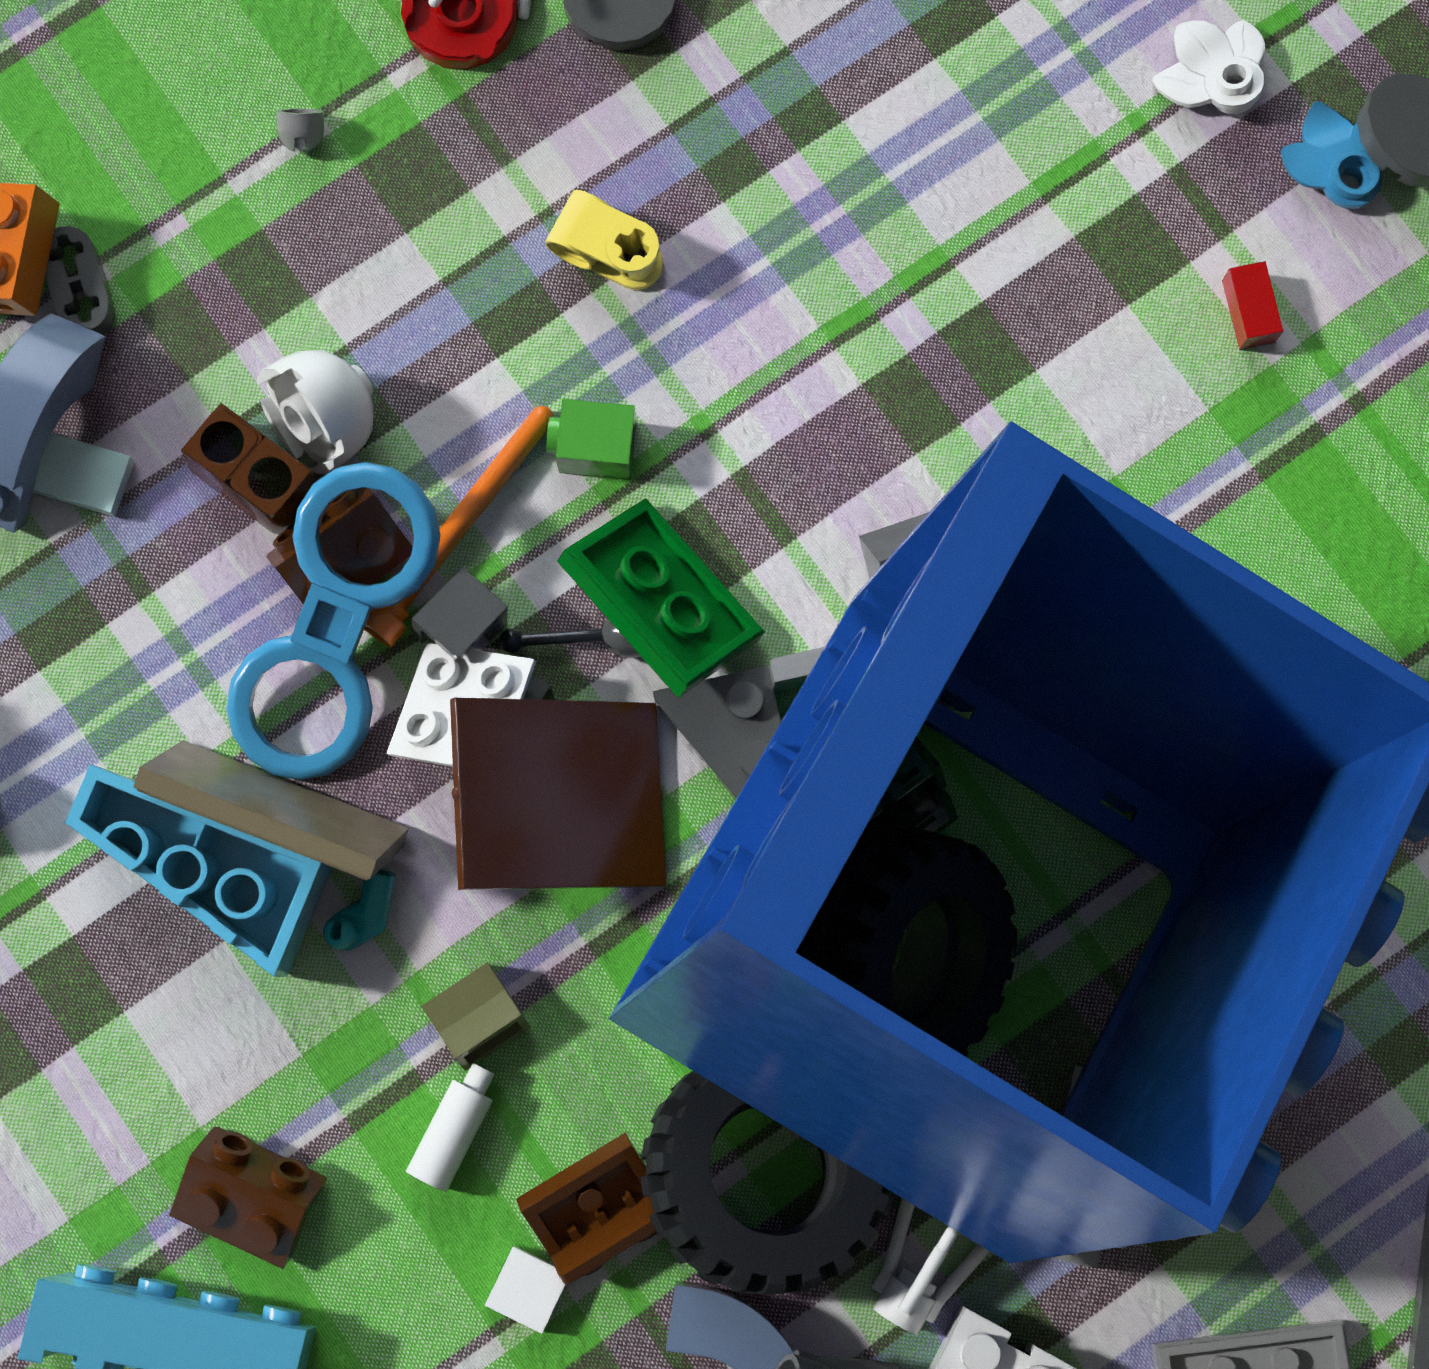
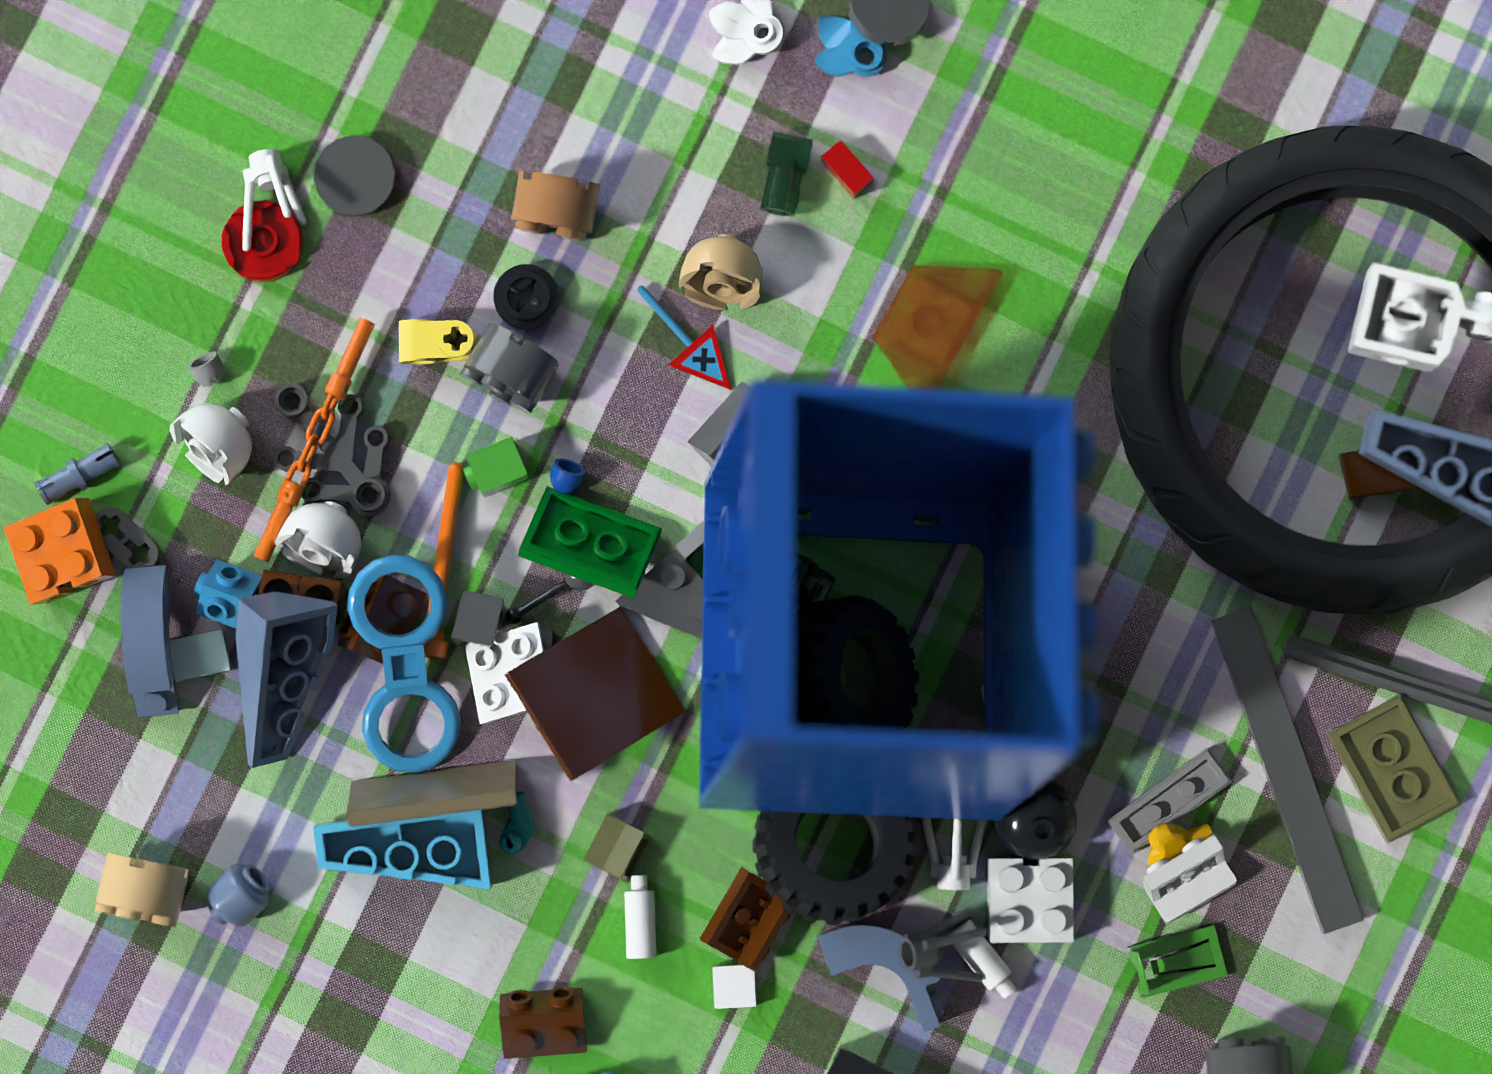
camera: 30 degrees left, 5 degrees up
(66, 168) = (77, 474): none -> sand blue pin
(158, 412) = (222, 589): none -> dark azure brick
(174, 526) = (278, 655): none -> sand blue wedge
(258, 212) = (215, 440): none -> white cylinder
(401, 319) = (339, 455): none -> dark grey plant
(448, 232) = (337, 389): none -> orange piece
(678, 498) = (566, 475): none -> blue hinge
(683, 318) = (510, 368): none -> dark grey brick
(758, 224) = (520, 278): none -> black gear
(853, 147) = (556, 204): none -> medium nougat brick
(937, 442) = (700, 357): none -> piece
(1019, 347) = (721, 272): none -> tan cylinder
(1059, 1300) = (1040, 823): none -> black cylinder
(1177, 256) = (787, 163): none -> clear green piece
(1287, 534) = (932, 320): none -> clear orange wing

